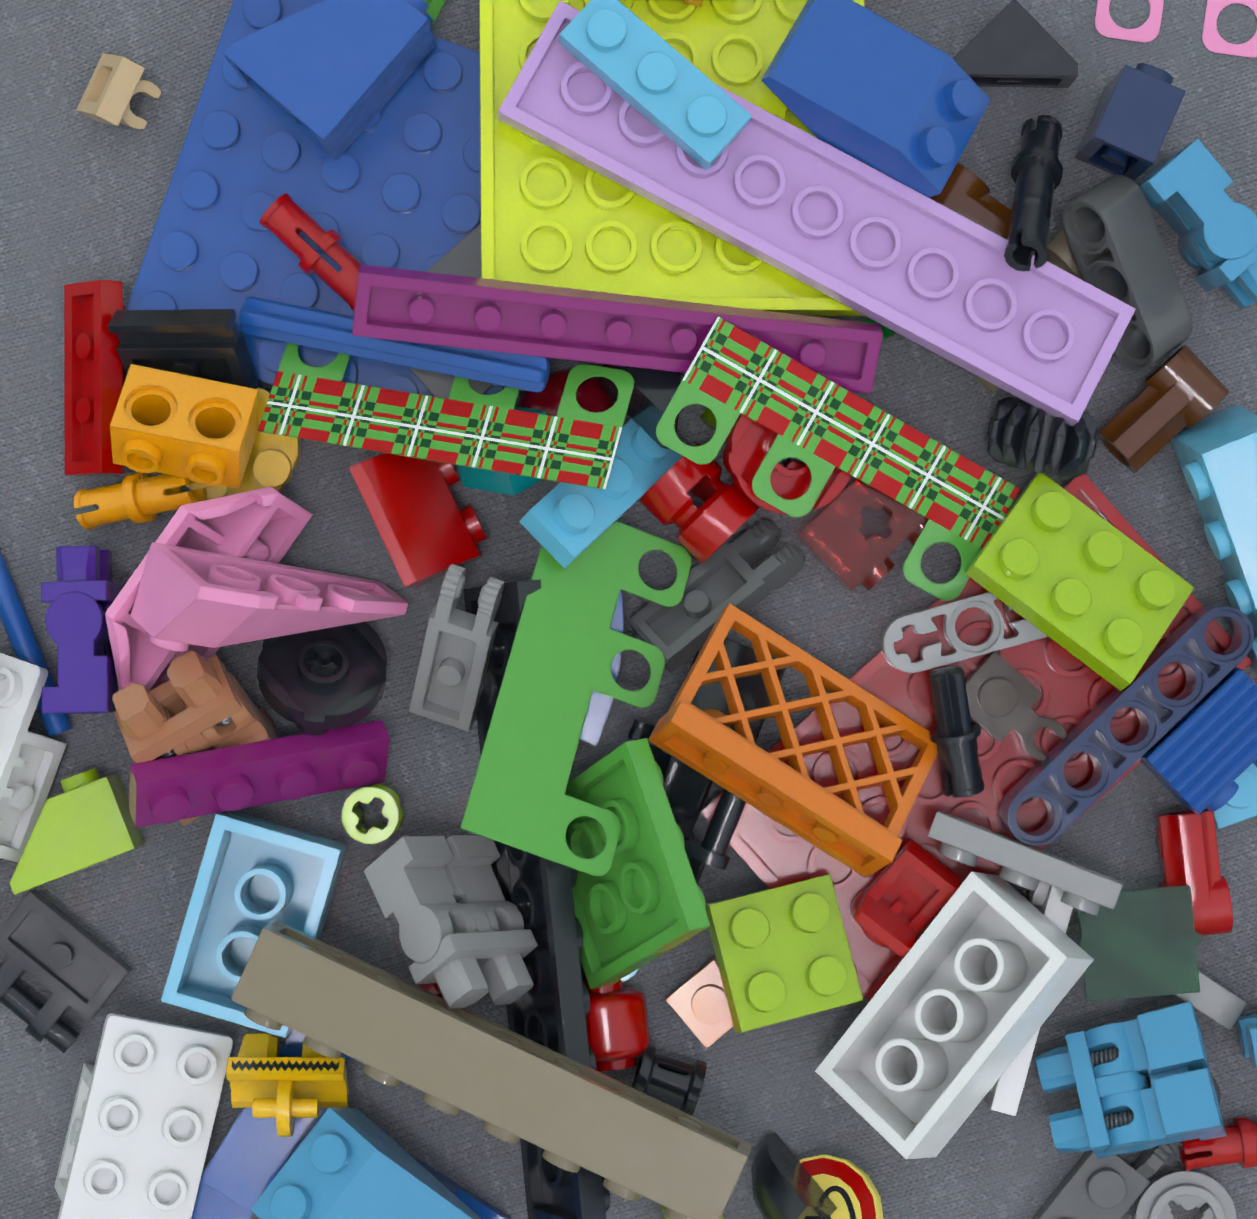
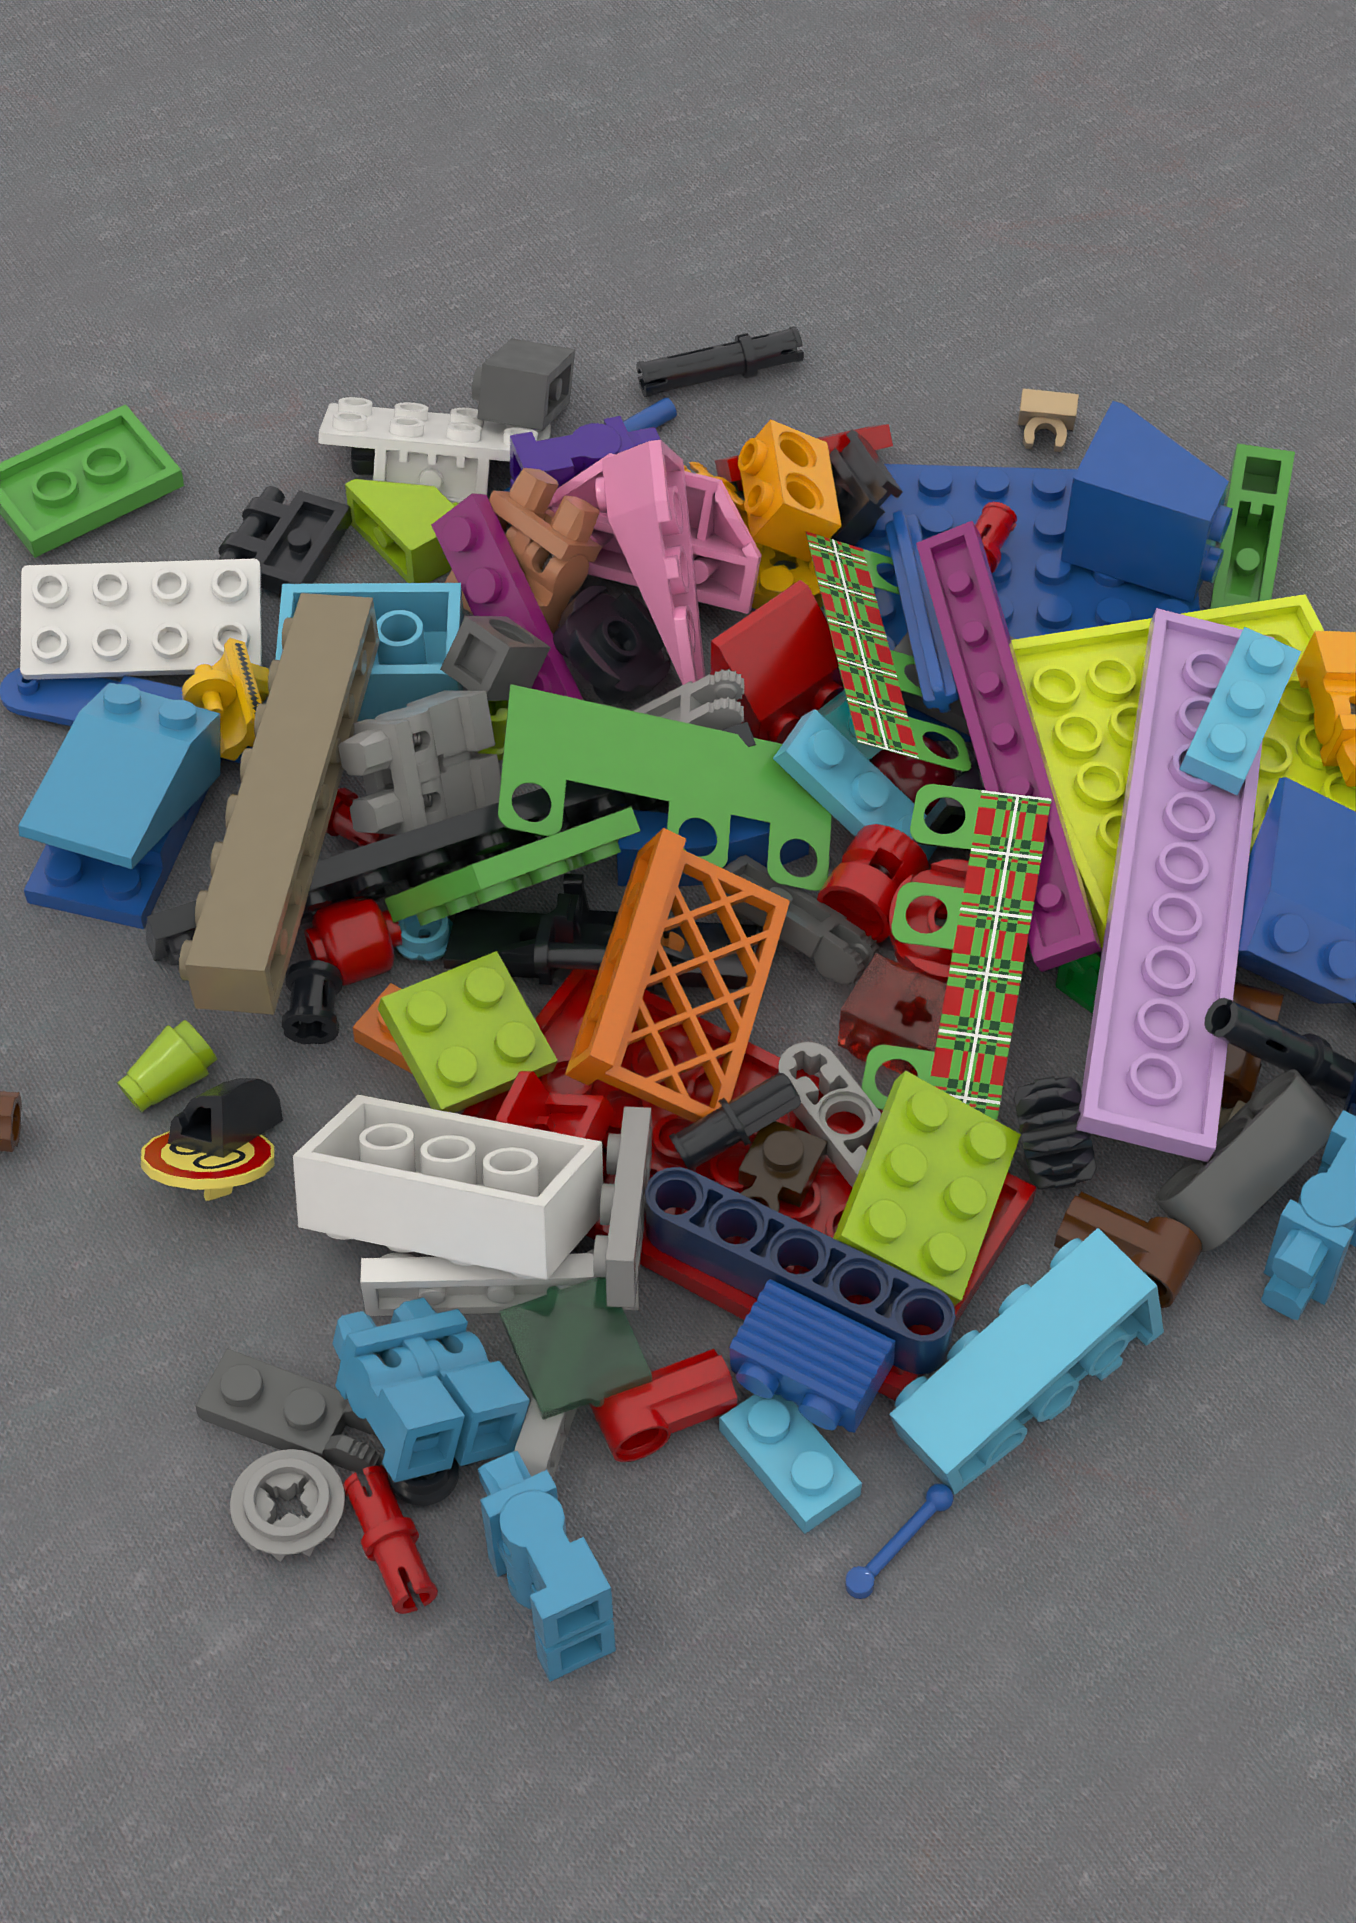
camera: 70 degrees right, 35 degrees down
(350, 811) = (493, 654): none -> dark grey brick

